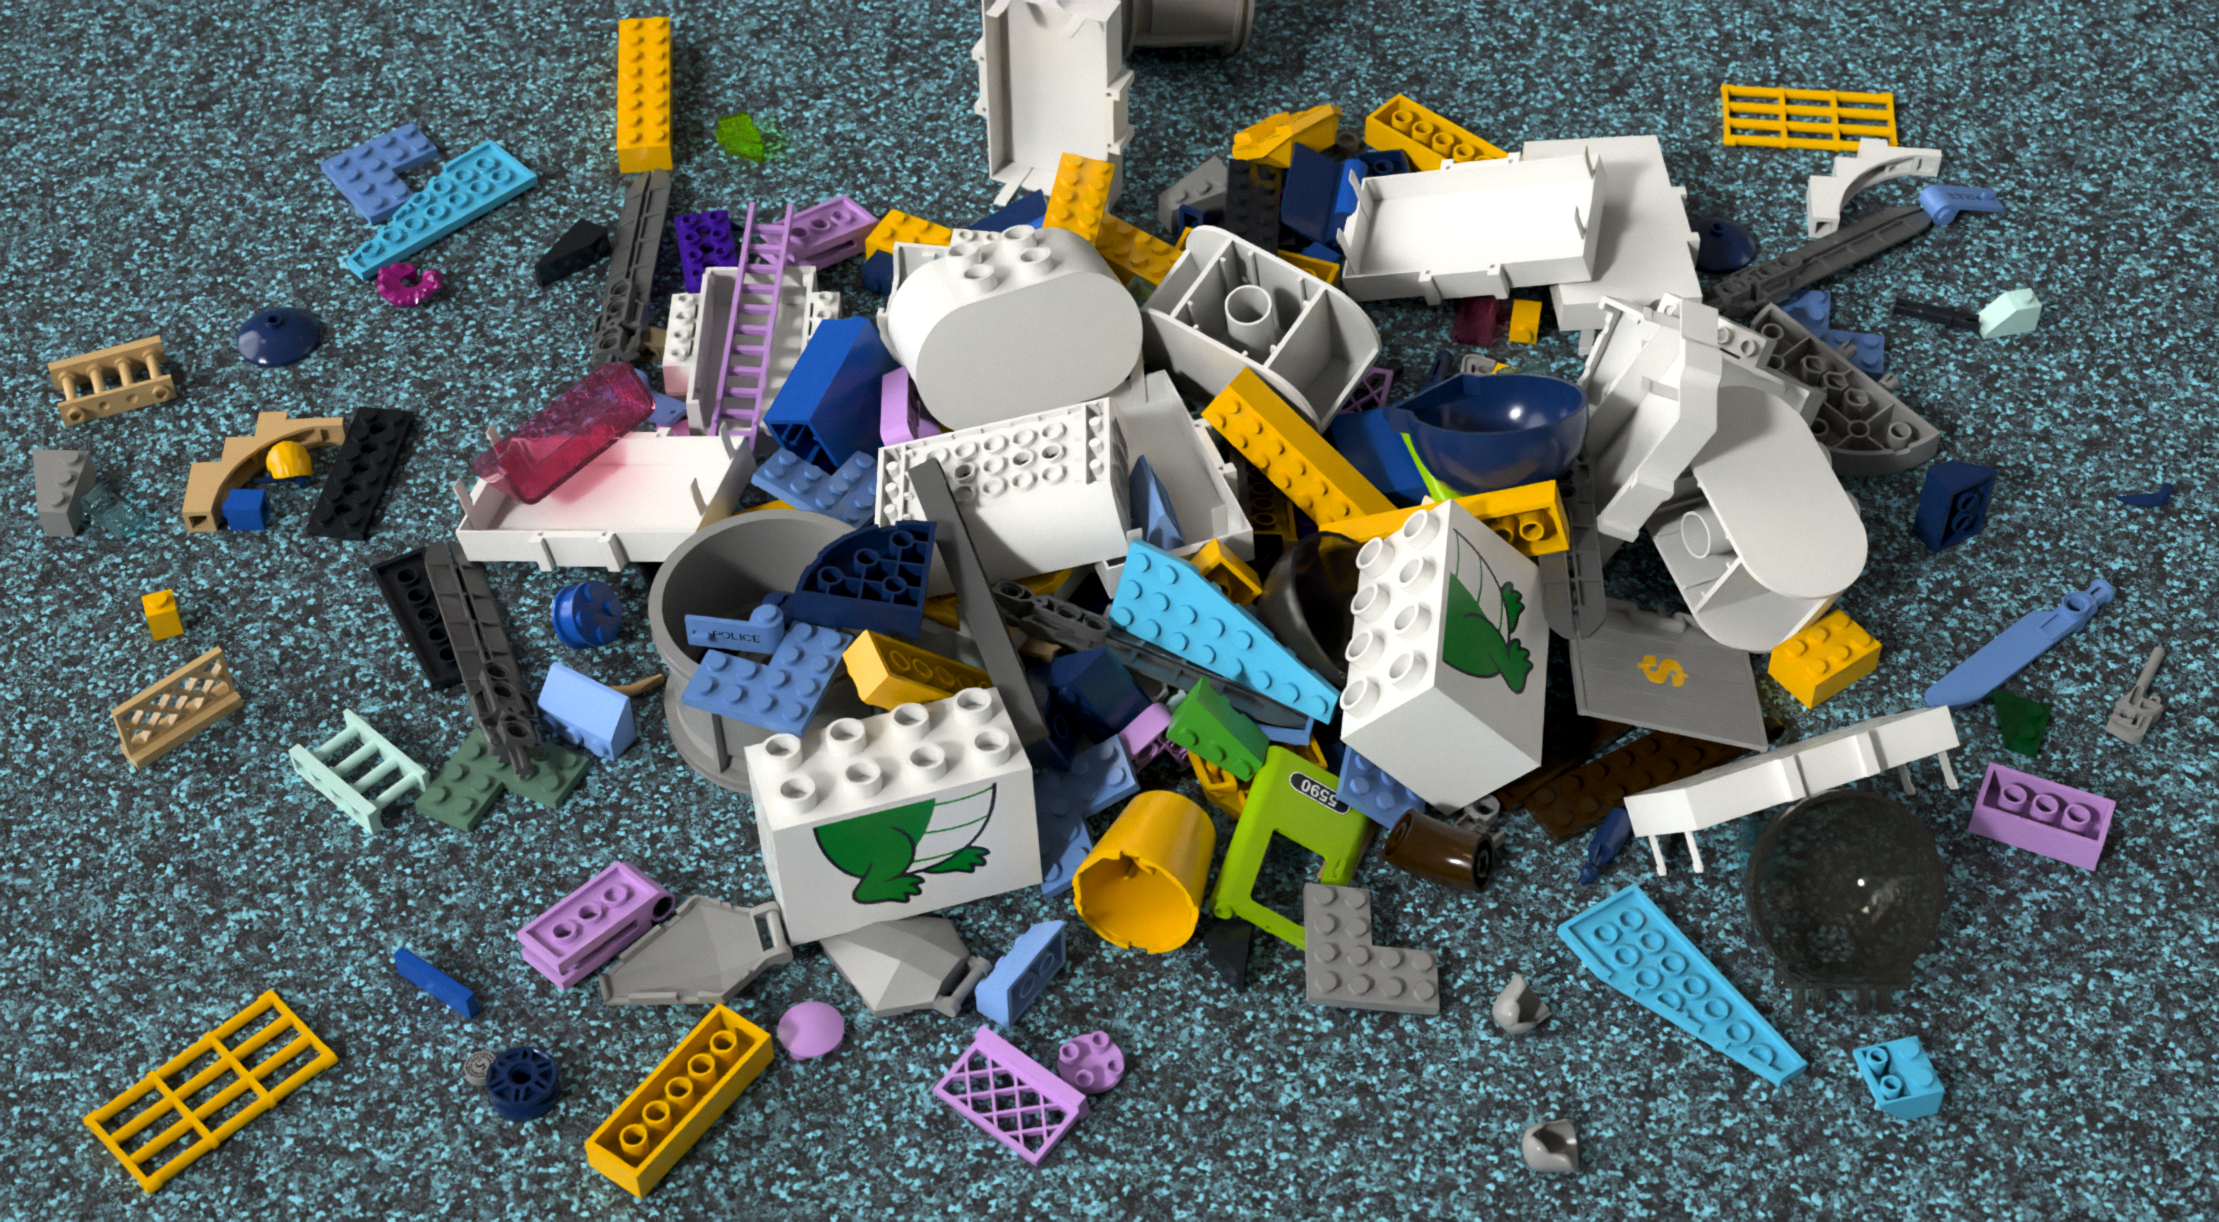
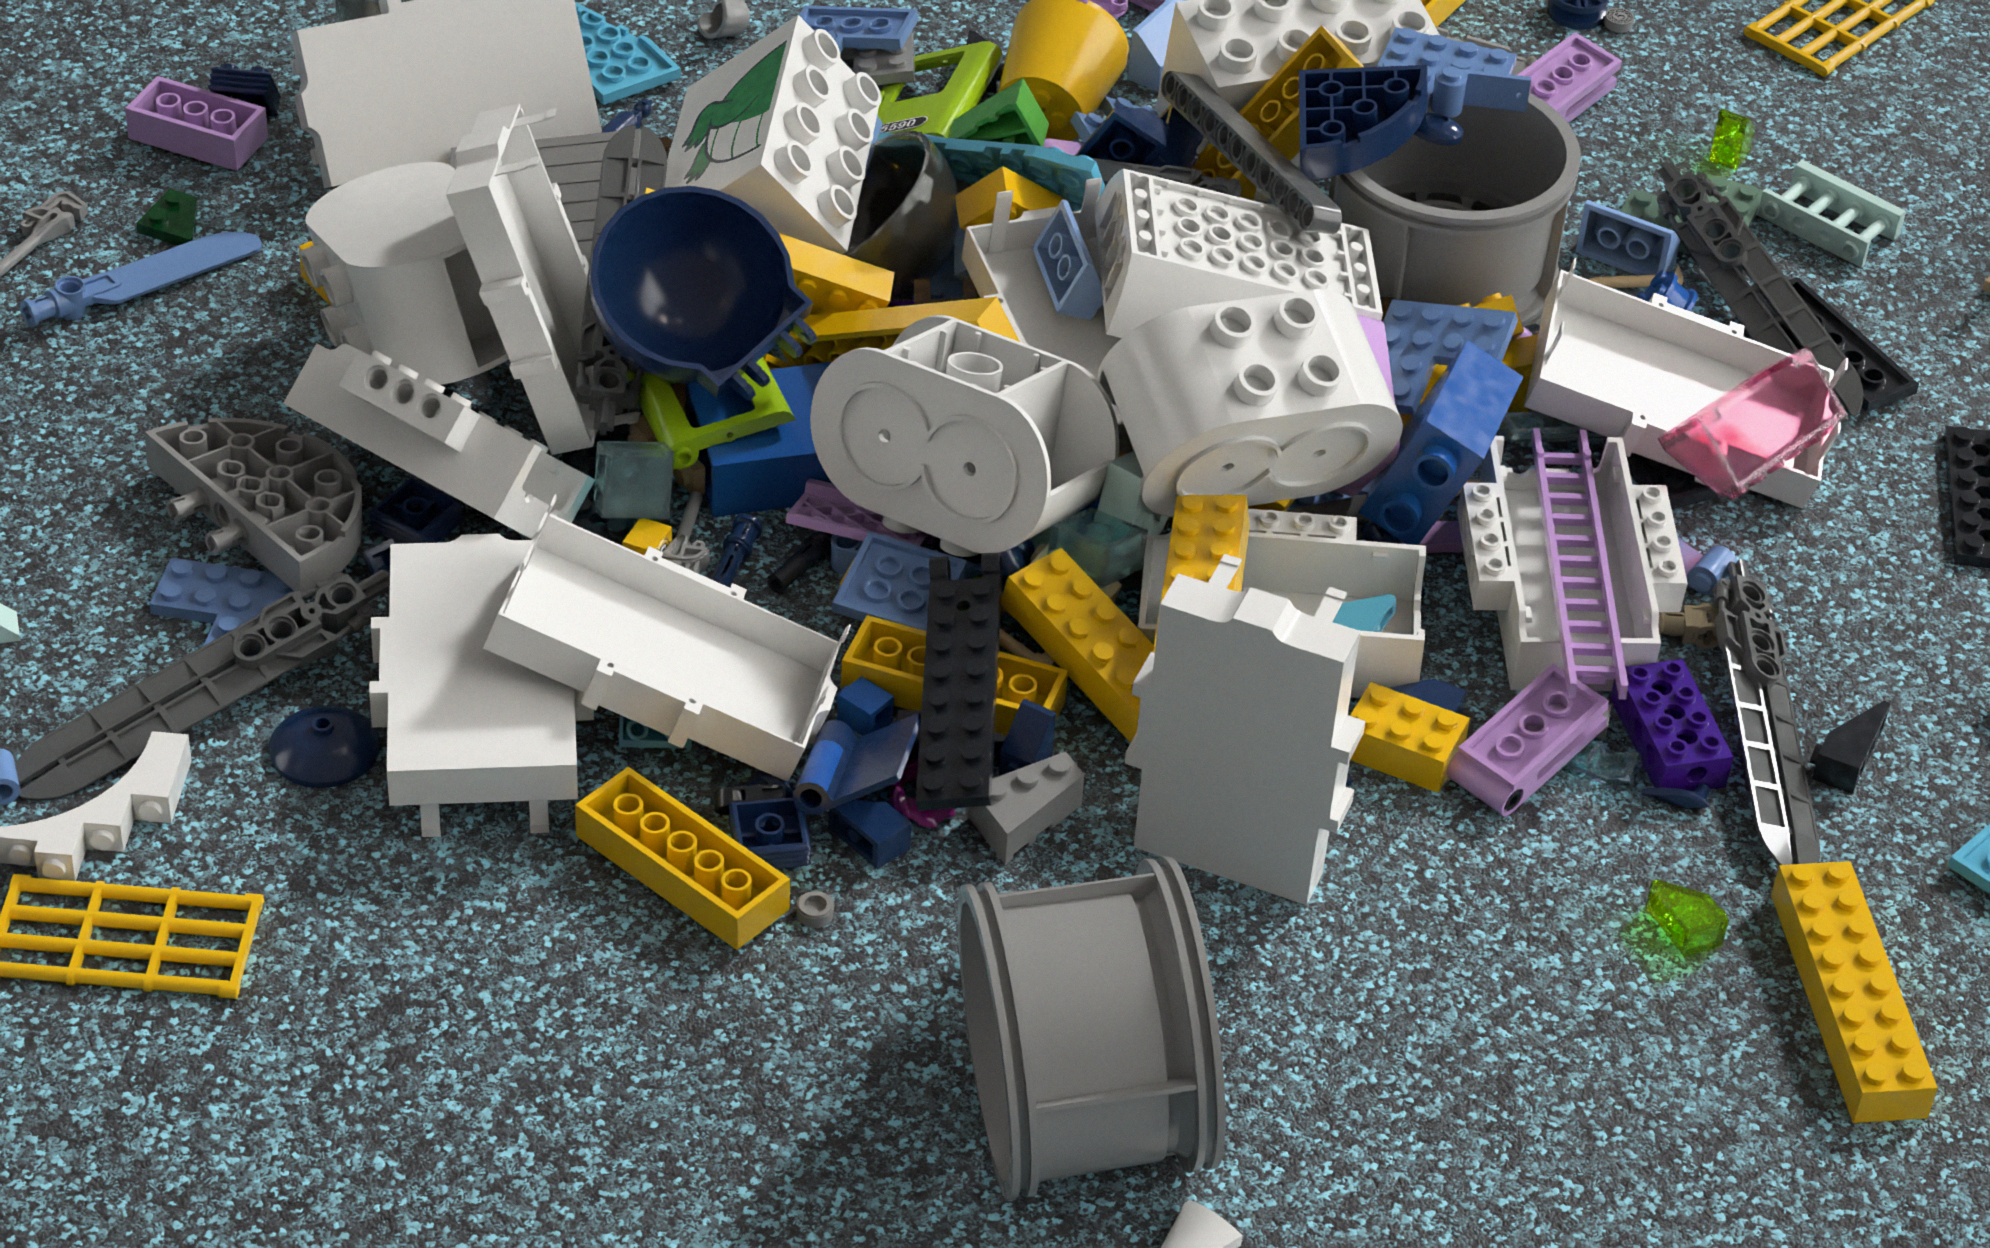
camera: 175 degrees right, 5 degrees down
(426, 853) = (1732, 139): none -> clear neon green slope
(436, 983) = (1682, 63): blue tile -> none
(1274, 137) = (938, 844): yellow piece -> none
(1392, 947) = (863, 26): none -> medium blue plate
(1936, 314) = (56, 626): black pin -> none
(1953, 503) = (163, 359): dark blue slope -> none
(1995, 836) = (250, 86): none -> dark blue brick

